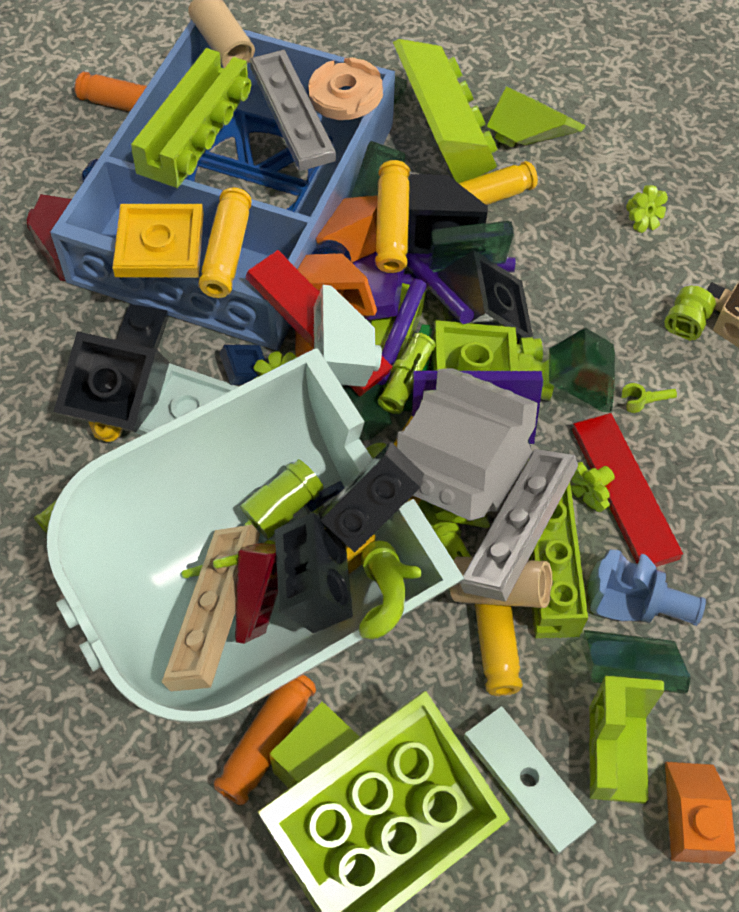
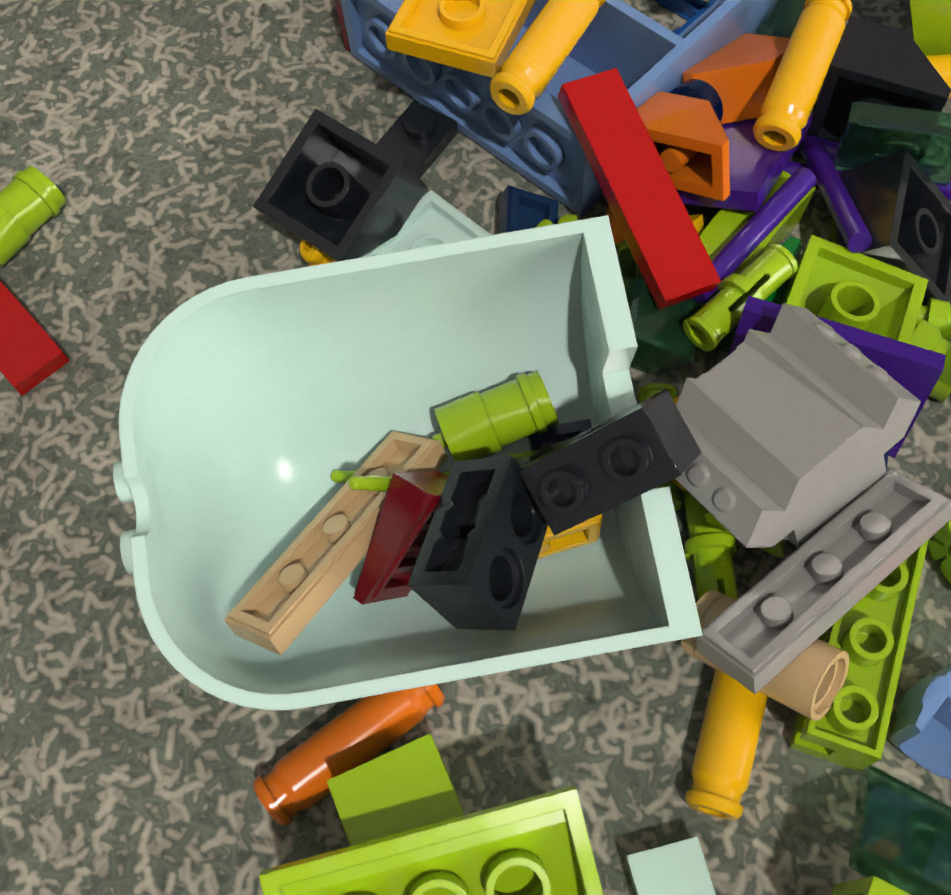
camera: 30 degrees right, 5 degrees up
(345, 339) = (660, 221): light aqua slope -> none
(385, 568) = (595, 570): lime plant -> none

